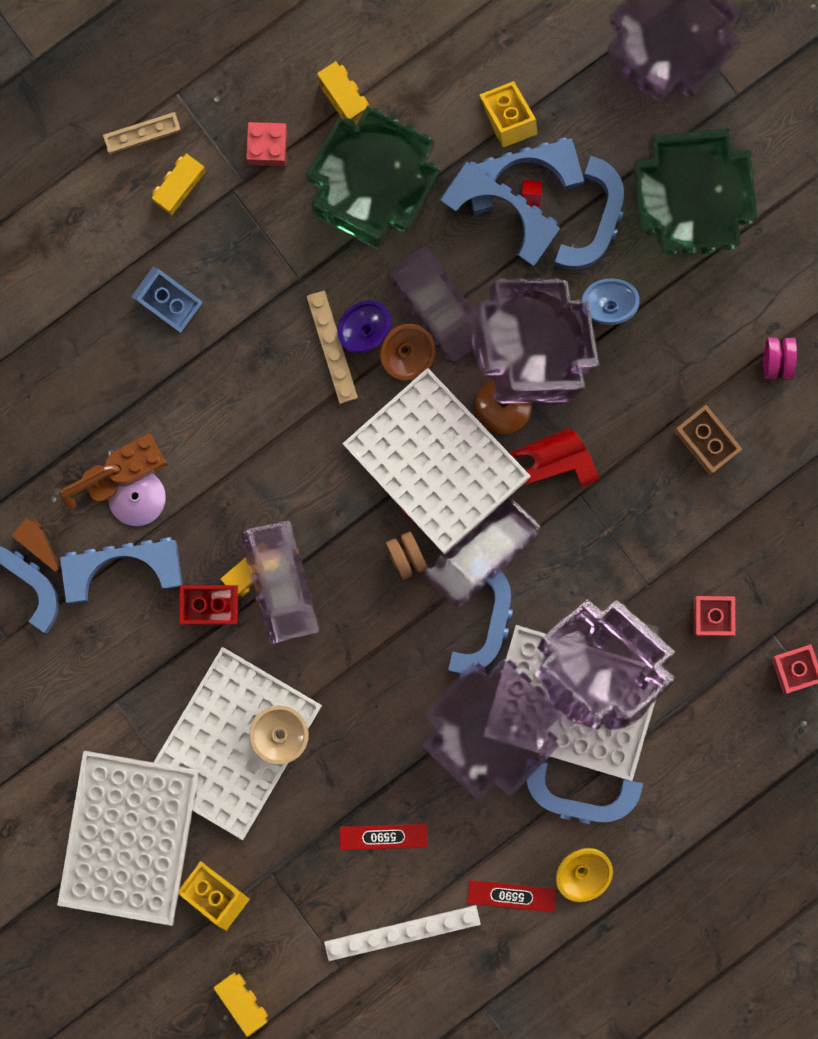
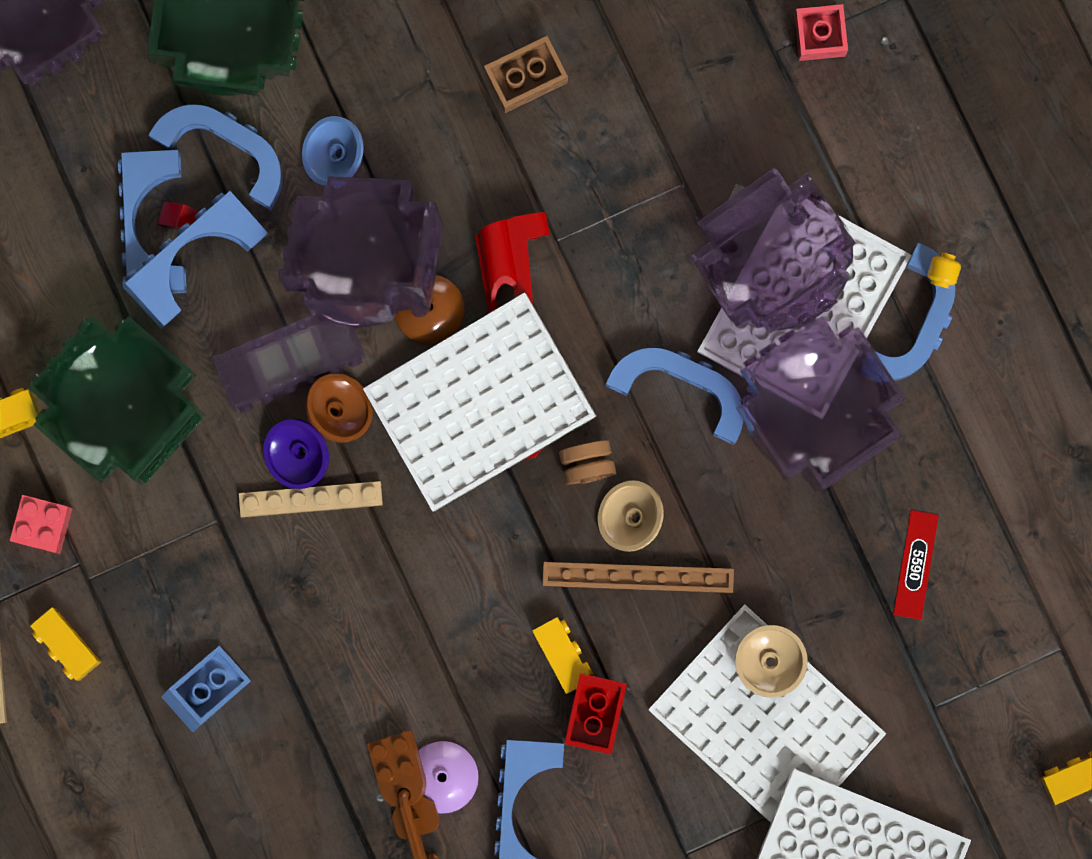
camera: 80 degrees left, 0 degrees up
(213, 896) = (945, 783): yellow slope -> none
(280, 582) = (586, 622): window -> none
(325, 616) = (638, 577): none -> medium nougat plate
(373, 591) = (619, 514): none -> tan dish
(402, 933) = (1034, 566): white plate -> none
(483, 552) = (604, 369): clear purple window -> none
(509, 114) = (72, 222): yellow slope -> none
(511, 896) = (1017, 428): red sticker -> none
(590, 880) = (1011, 335): yellow dish -> none
(623, 808) = (944, 270): none -> yellow head
(714, 616) = (738, 114): coral brick -> none

